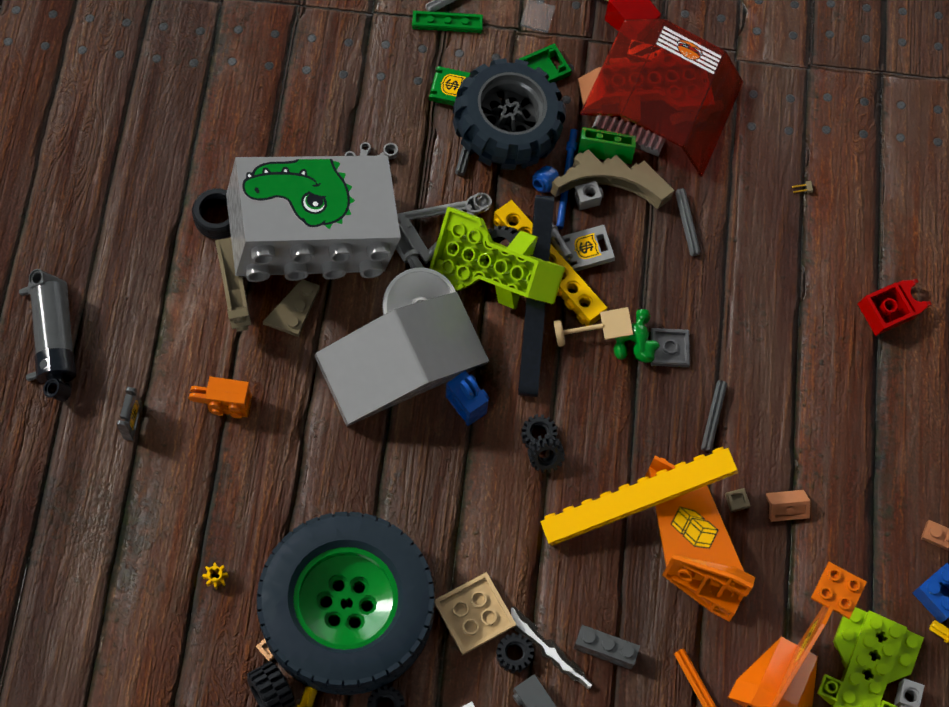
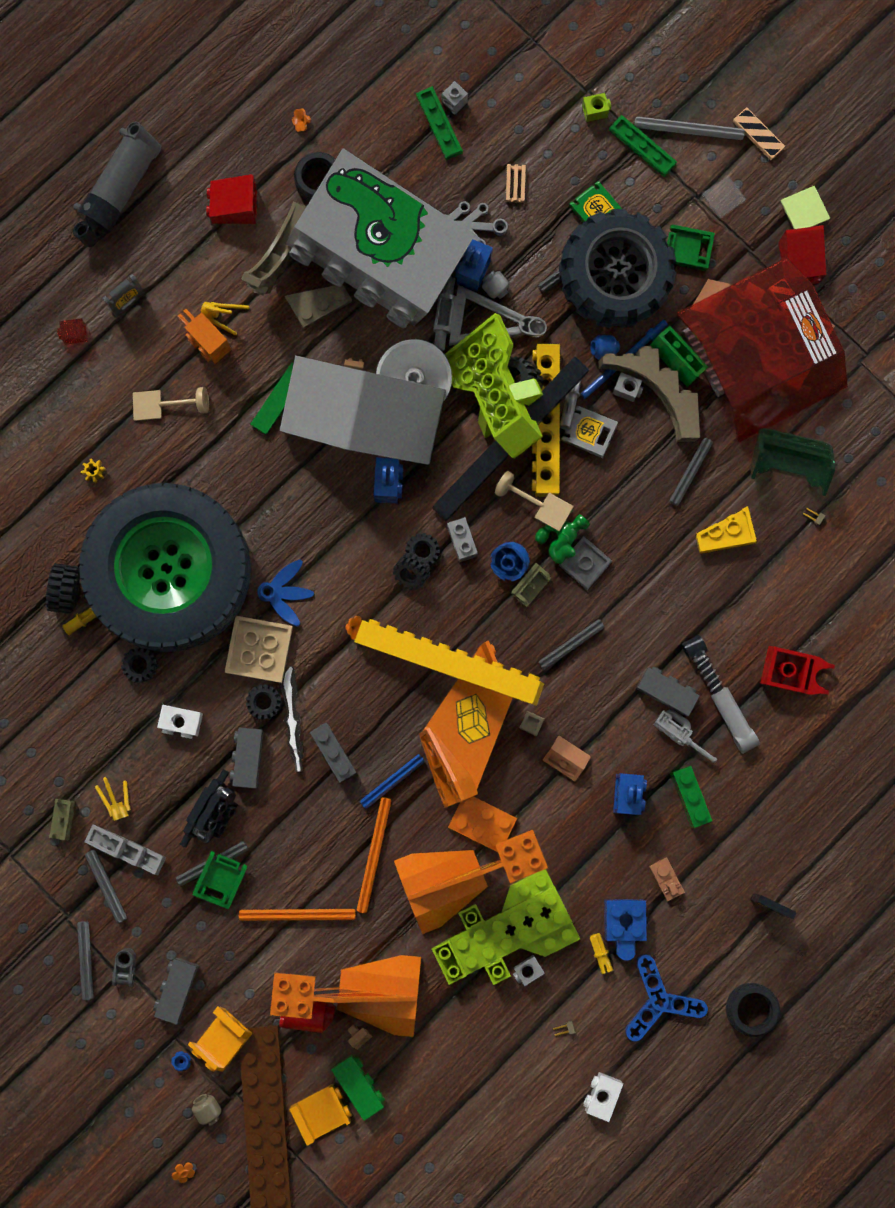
camera: 40 degrees right, 15 degrees up
(106, 477) = (72, 331): none -> clear red brick
(161, 278) = (232, 200): none -> red slope
(166, 182) = (300, 120): none -> orange plant
(213, 371) = (212, 310): none -> yellow plant
(219, 489) = (148, 403): none -> tan piece
(276, 83) = (454, 97): none -> light grey brick
(278, 110) = (439, 123): none -> green tile
(323, 407) = (273, 405): none -> green tile
(366, 101) = (515, 168): none -> light nougat tile
(385, 22) = (595, 114): none -> lime brick
(401, 188) = (473, 265): none -> blue brick
(423, 194) = (495, 284): none -> light grey head
(451, 556) = (278, 592): none -> blue plant
(537, 534) = (353, 626): none -> orange plant
(563, 400) = (462, 539): none -> light grey brick
(615, 386) = (510, 561): none -> blue cylinder
(644, 394) = (531, 585): none -> olive hinge
(671, 633) = (392, 781): none -> blue axle
(755, 153) = (794, 455): none -> clear green windscreen
(755, 244) = (730, 533): none -> yellow wing
(770, 609) = (482, 822): none -> orange plate
(816, 393) = (668, 691): none -> dark grey brick
(851, 417) = (677, 733): none -> light grey piece
(860, 491) = (629, 794): none -> blue brick
(901, 382) = (742, 734): none -> piece
(905, 458) = (691, 797): none -> green brick

